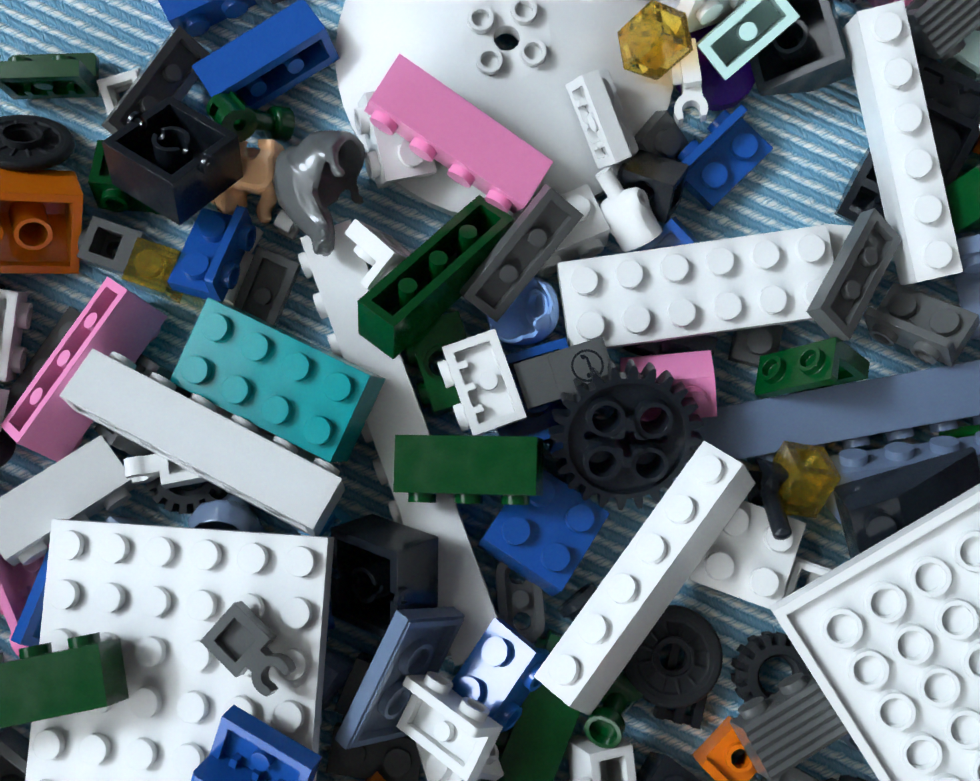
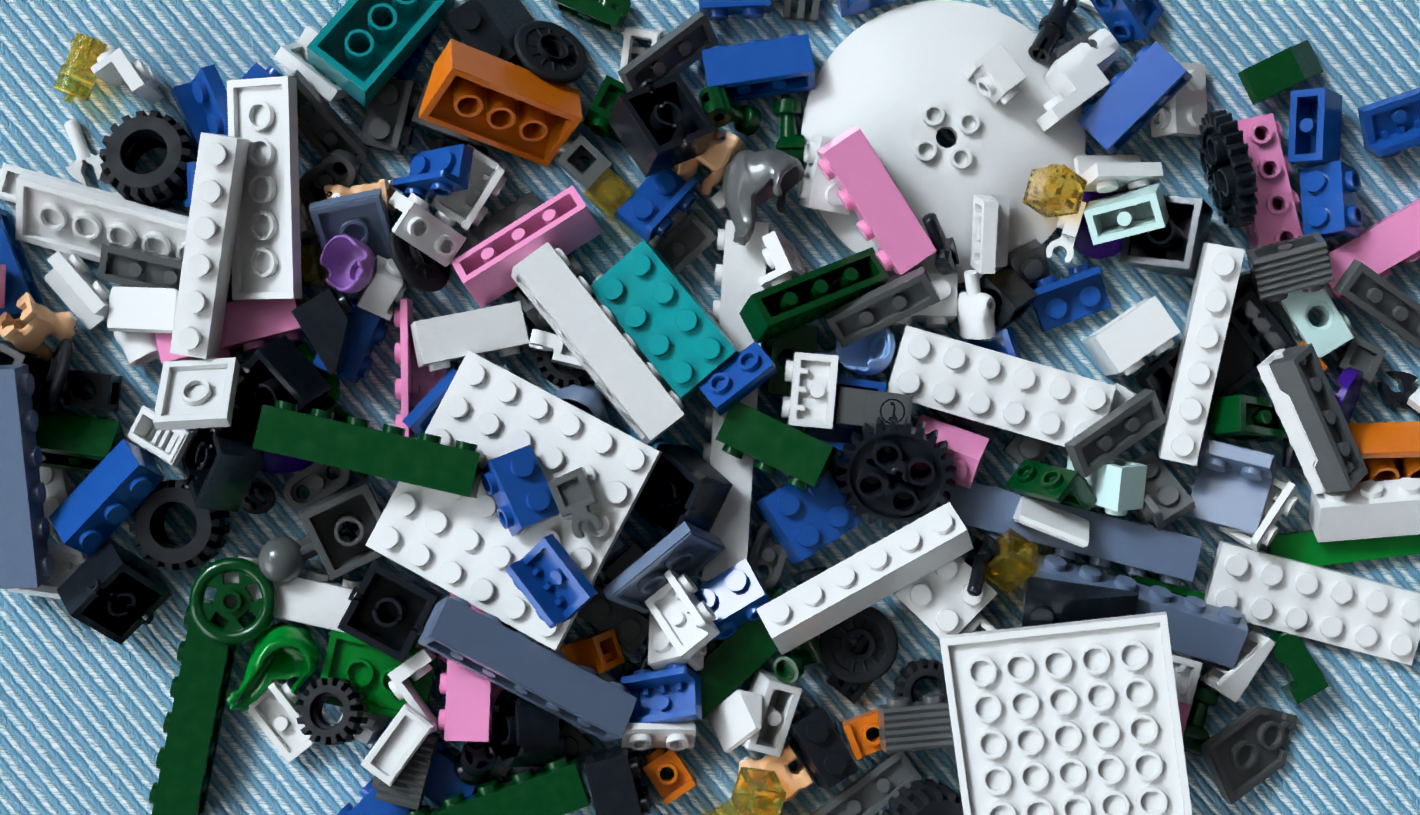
camera: 25 degrees right, 5 degrees up
(172, 665) = (519, 490): none -> blue bracket
(319, 93) = (789, 139): none -> dark green leg
(389, 407) = (738, 378): none -> blue bracket
(564, 164) = (946, 250): none -> black bar
(816, 165) = (1131, 336): none -> white piece
(830, 411) = (1052, 521): none -> white slope
(885, 335) = (1117, 485): none -> light aqua brick

